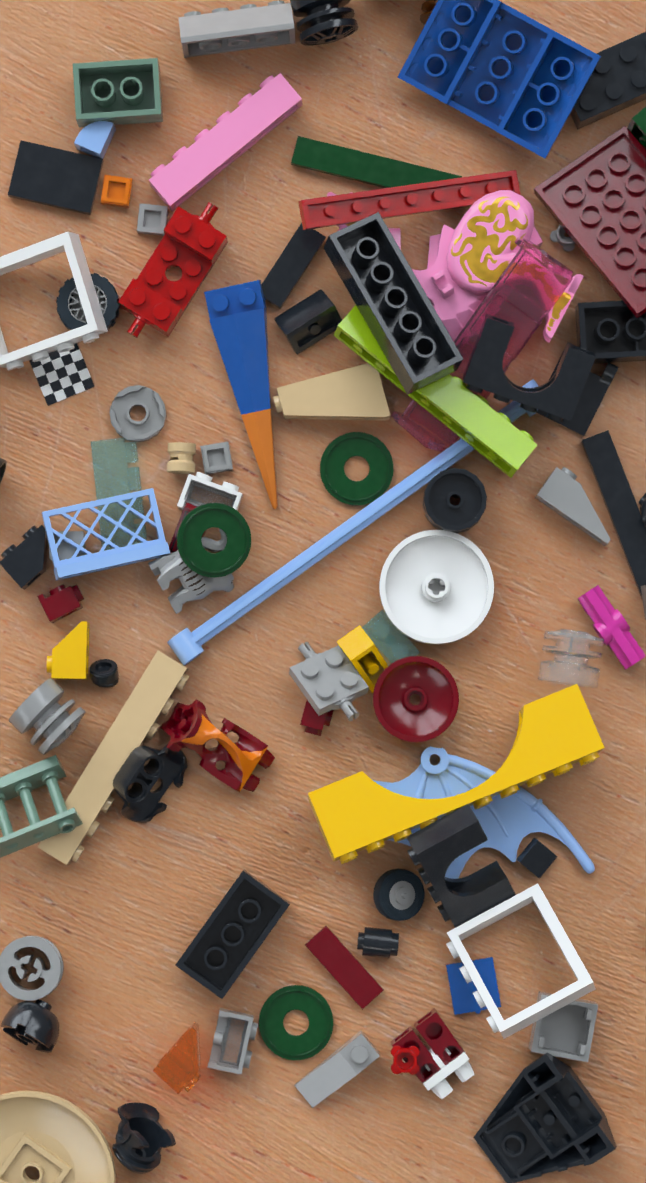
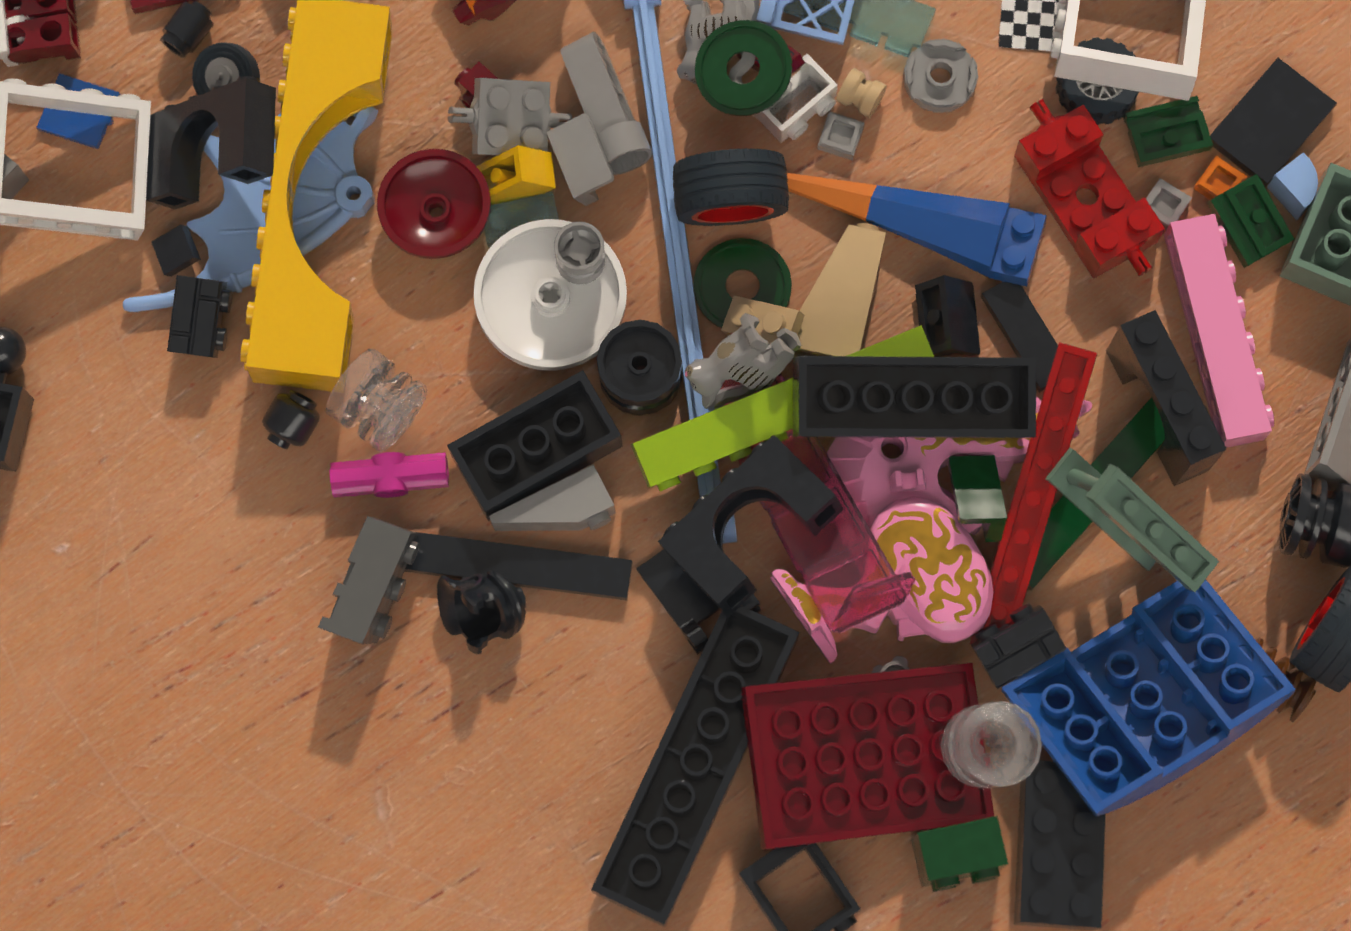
camera: 120 degrees right, 10 degrees down
(102, 241) = (1167, 131): none -> dark green plate
(137, 156) = (1250, 220): none -> dark green plate
(281, 626) = (606, 104): none -> light grey beam
(304, 502) = (730, 187): none -> black wheel
(315, 123) = (1147, 353): none -> black arch
(331, 618) = (581, 158): none -> light grey panel
(382, 436) = (771, 317): none -> tan plate
(397, 126) = (1132, 519): none -> sand green fence
(405, 576) = (579, 252): none -> light grey wheel
(426, 427) = (742, 358): none -> light grey animal
(427, 235) = (978, 494): none -> dark green panel
(510, 163) = (1017, 645): none -> black brick
(543, 540) = (536, 444): none -> black brick
(577, 812) = (199, 316): none -> black brick
(588, 131) = (1009, 734): none -> clear wheel
(610, 712) = (291, 419): none -> black head

